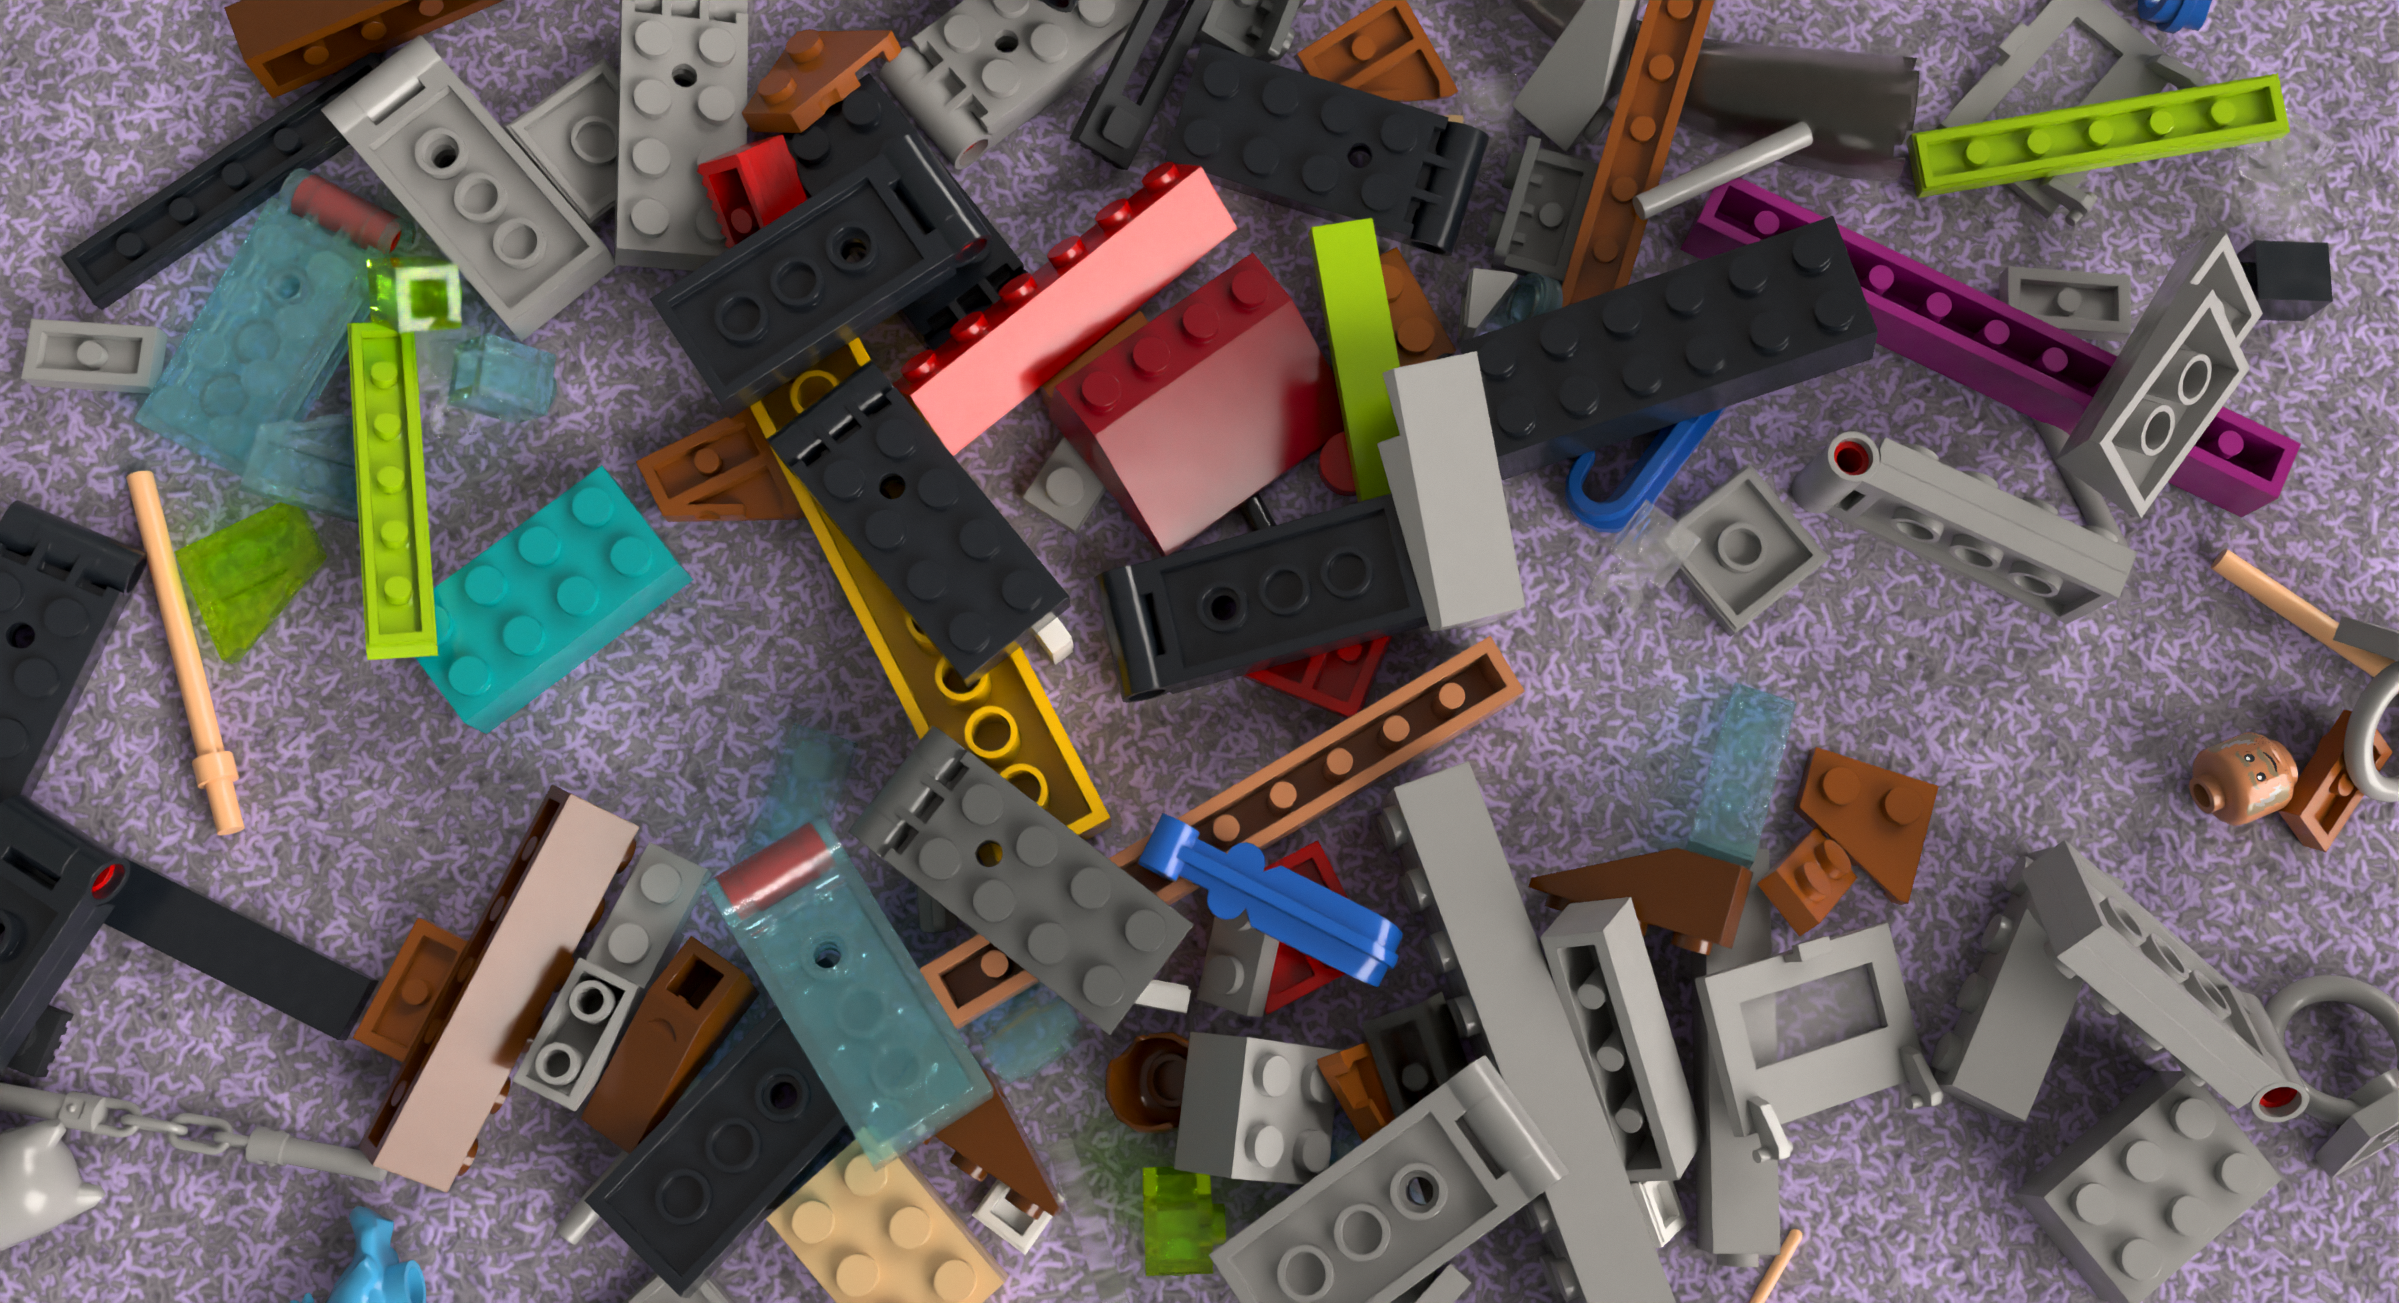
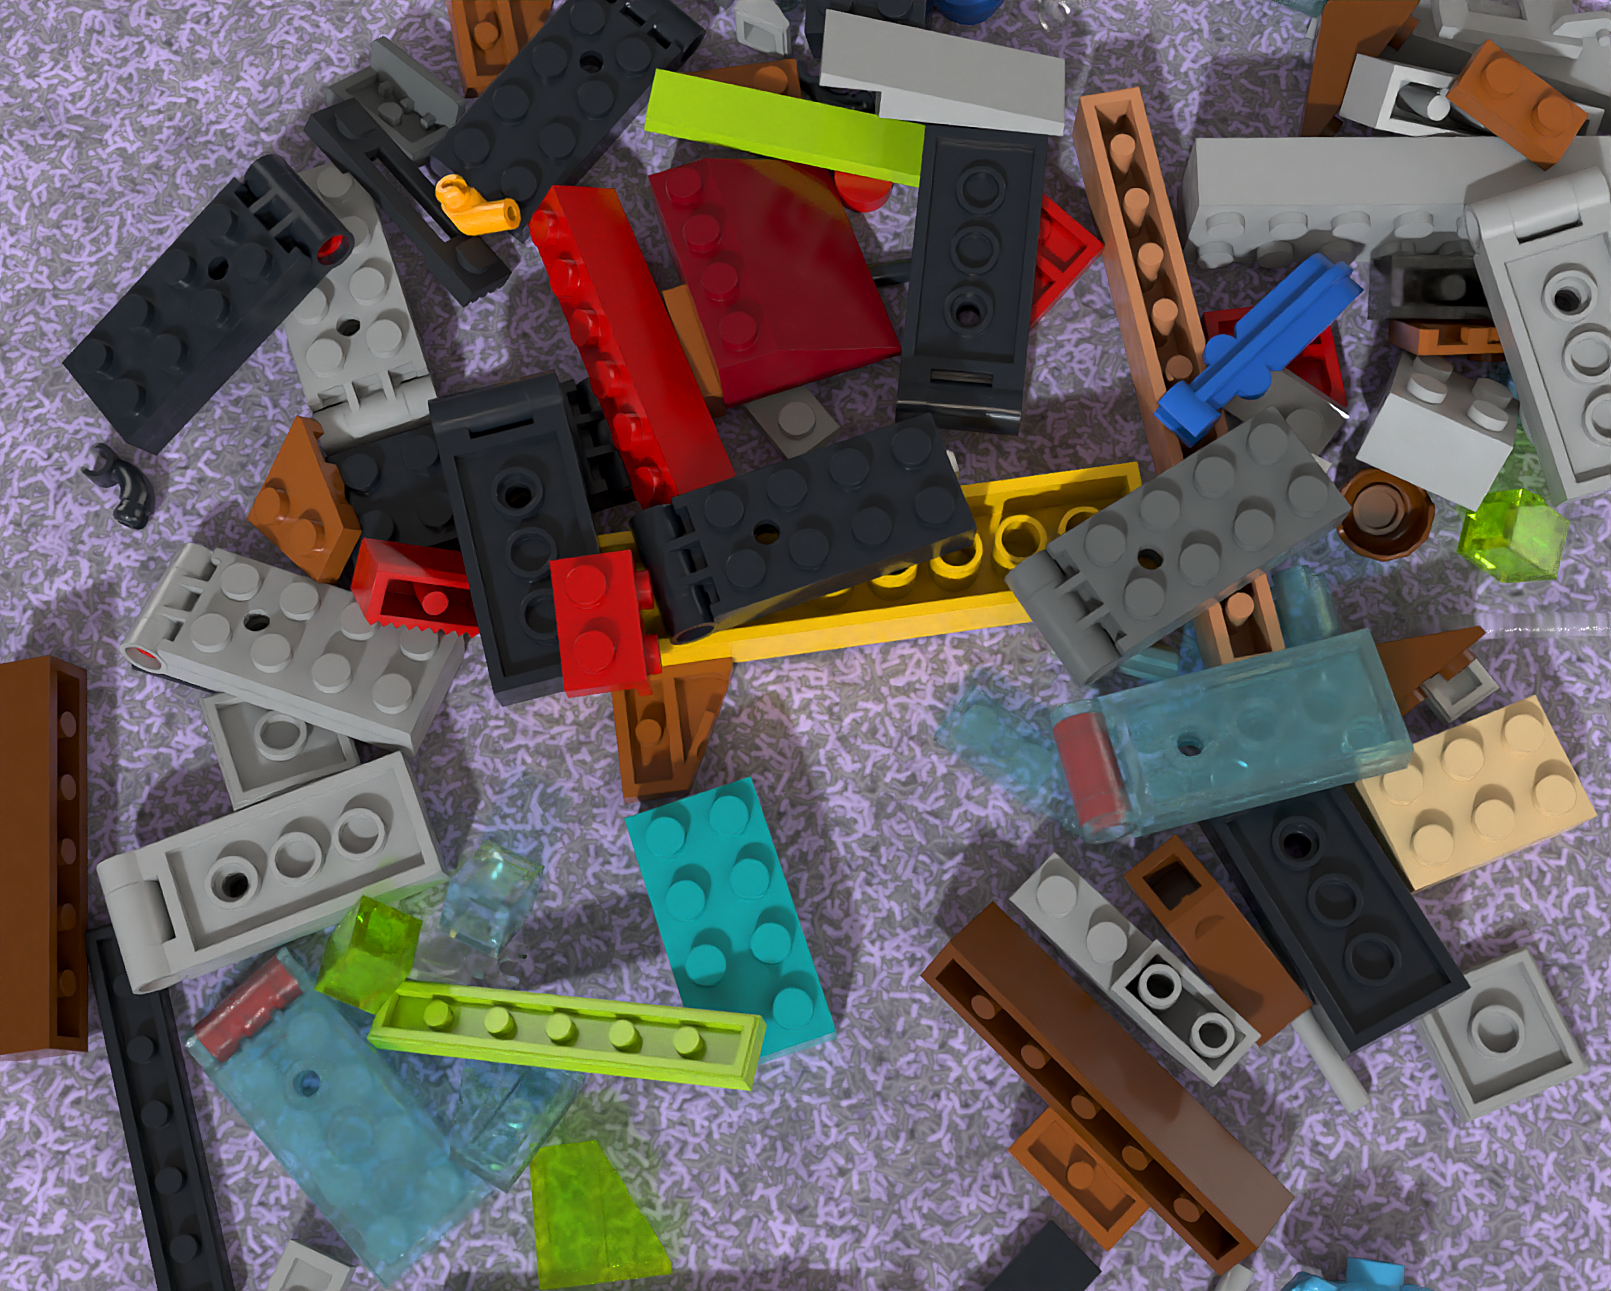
camera: 60 degrees left, 5 degrees down
(744, 373) = (602, 624): none -> red bracket
(1161, 105) = (471, 211): none -> light orange arm
(1617, 1075) = (1517, 105): none -> dark orange plate

